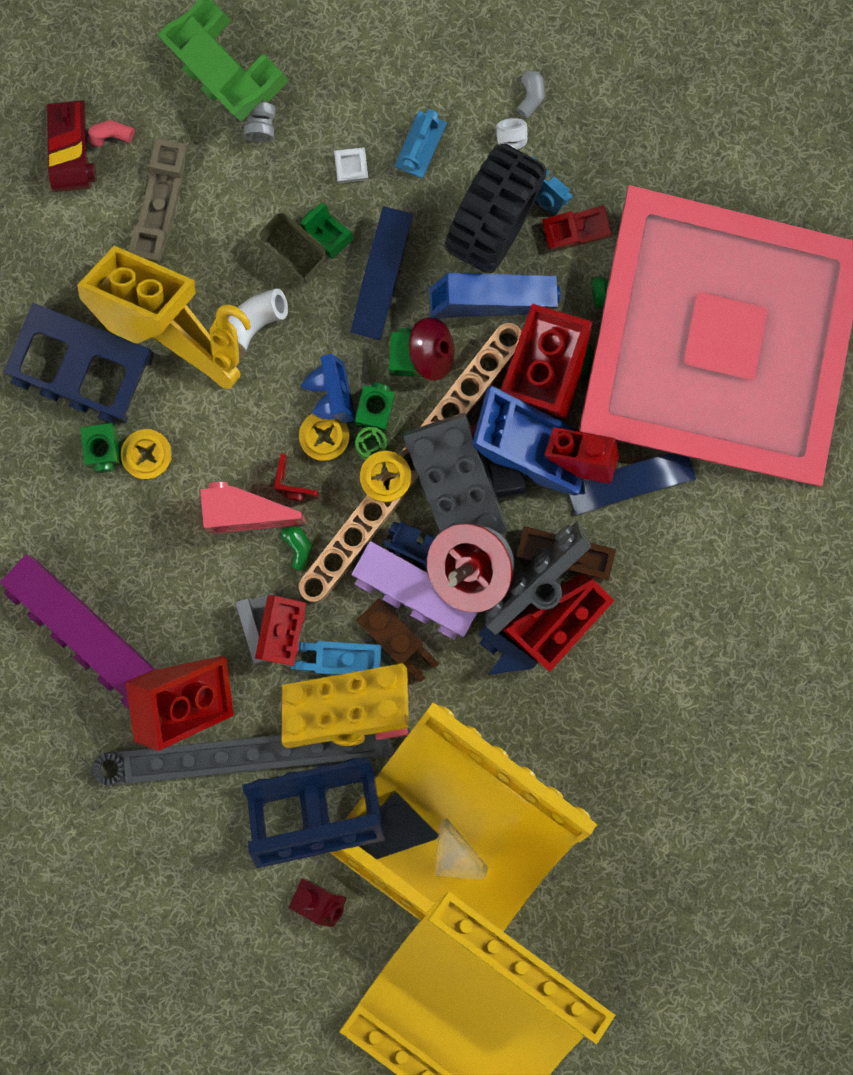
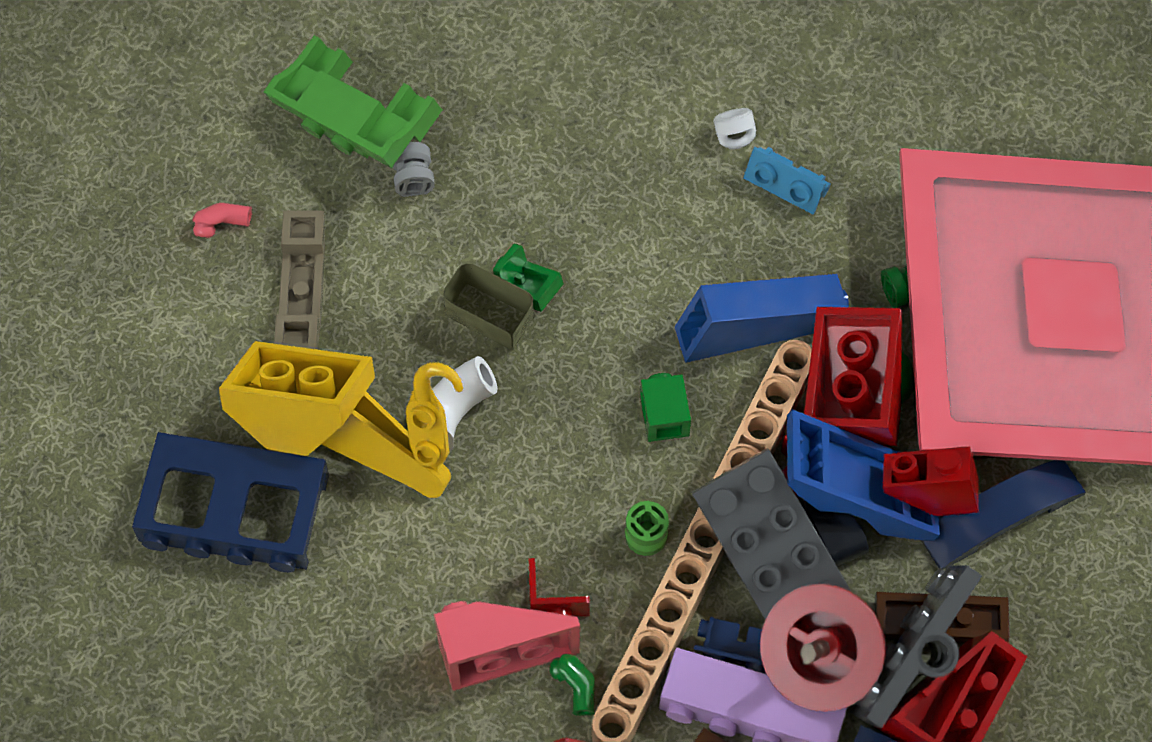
camera: 10 degrees left, 20 degrees down
(67, 153) = (171, 245): dark red door -> none
(94, 435) = (276, 585): green brick -> none
(146, 439) = (339, 583): yellow gear -> none
(324, 451) = (574, 514): yellow gear -> none
(331, 378) = (572, 454): blue tile -> none
(351, 165) = (539, 200): white tile -> none
(367, 419) = (640, 462): green brick -> none
(381, 272) = (610, 316): dark blue slope -> none
(396, 465) = (687, 541): yellow gear -> none
(420, 143) = (622, 158): dark azure hinge -> none
(431, 349) = (698, 392): dark red dish -> none
(495, 207) = (741, 200): black tyre -> none
(535, 93) = (752, 79): light grey arm -> none
(577, 228) = (846, 221): red slope -> none

